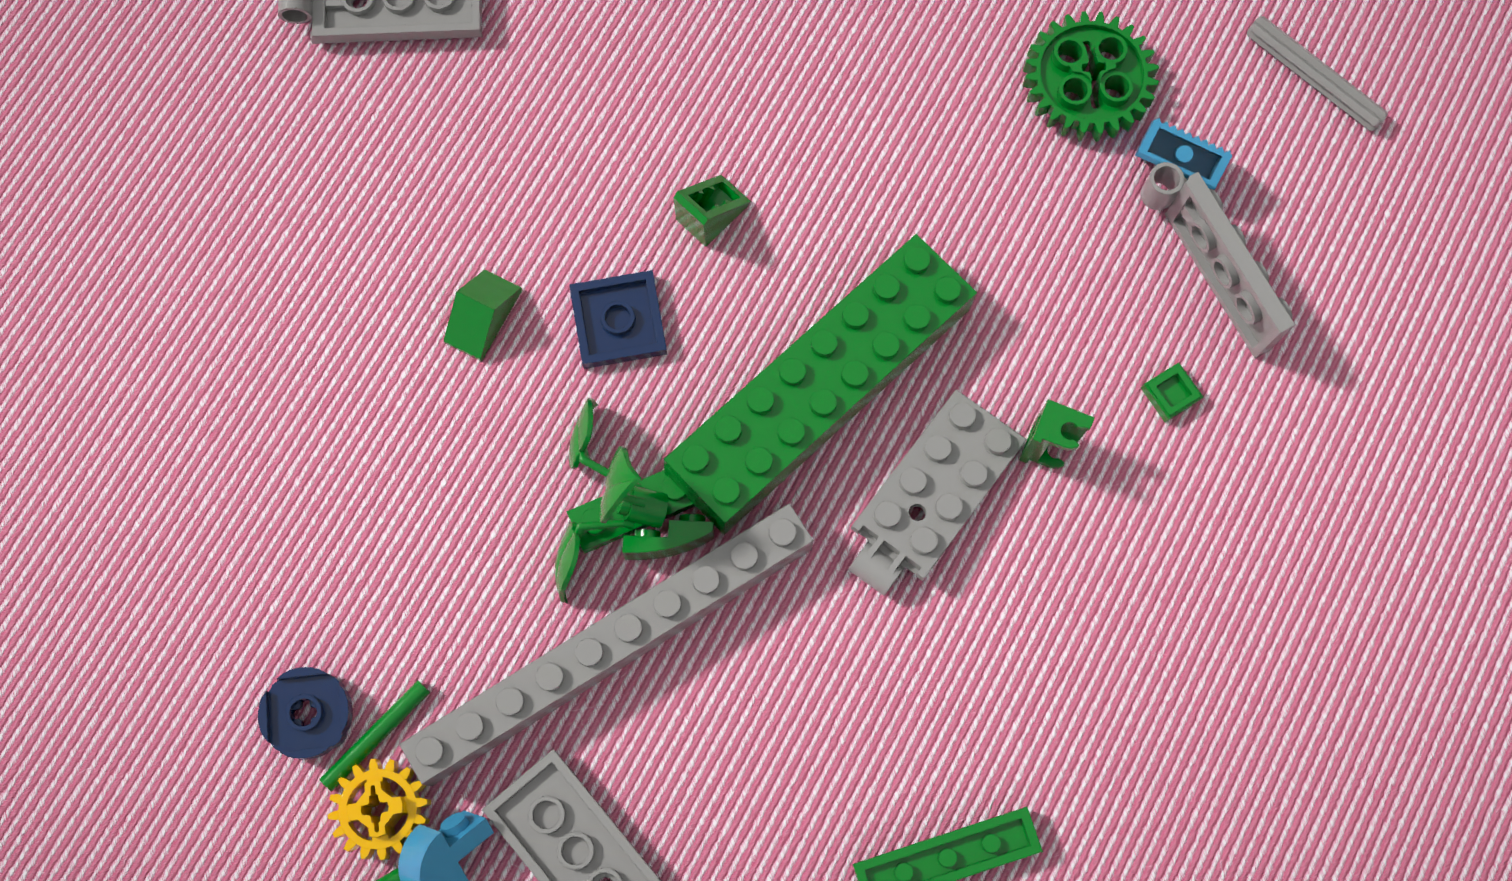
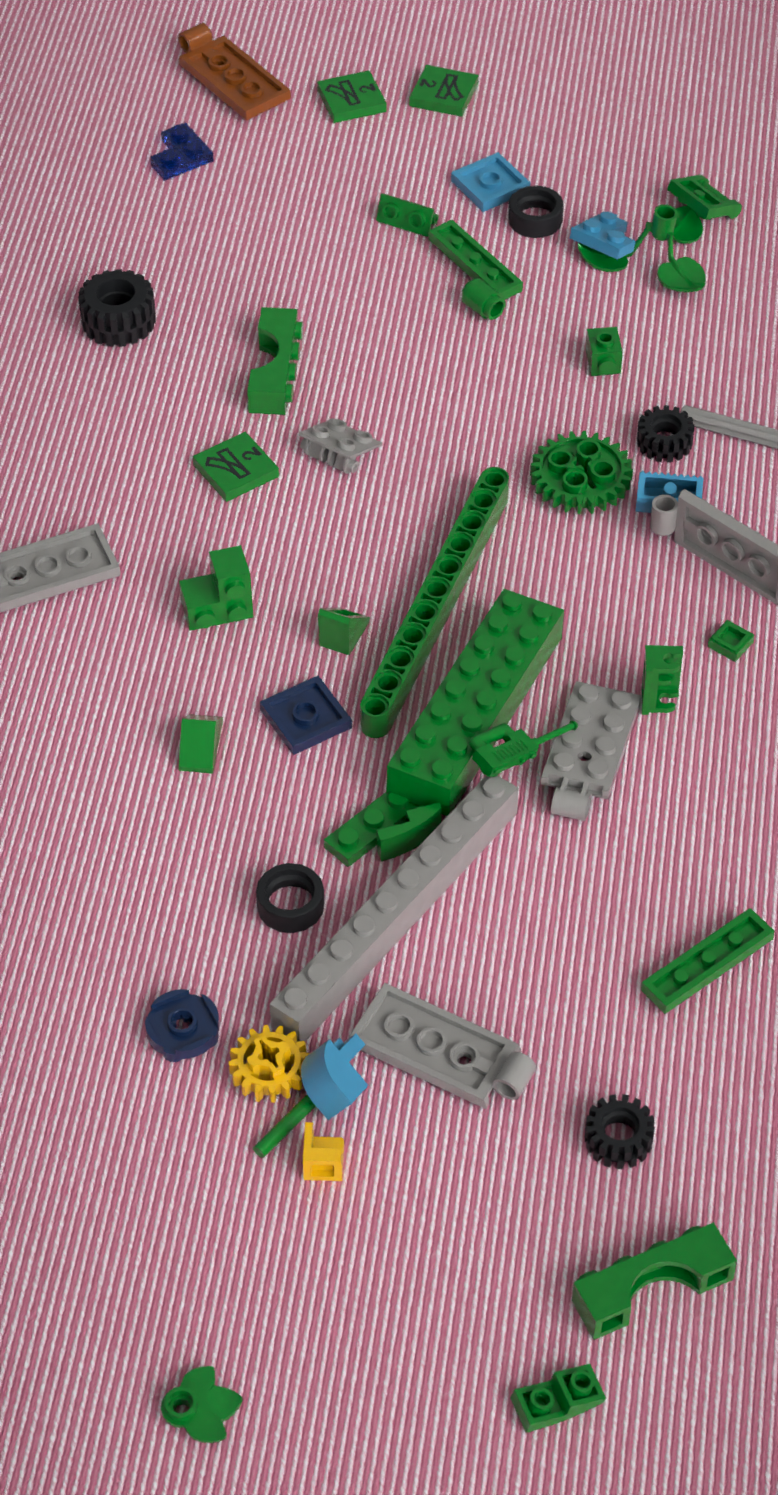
camera: 20 degrees left, 25 degrees down
(375, 734) = (242, 1024): green bar -> none
(473, 556) = (290, 920): none -> black tyre
(578, 112) = (220, 596): none -> green brick
(621, 494) = (375, 806): green plant -> none
(831, 225) = (433, 603): none -> green beam
(834, 489) = (514, 751): none -> green piece
(1227, 31) = (665, 421): none -> black tyre

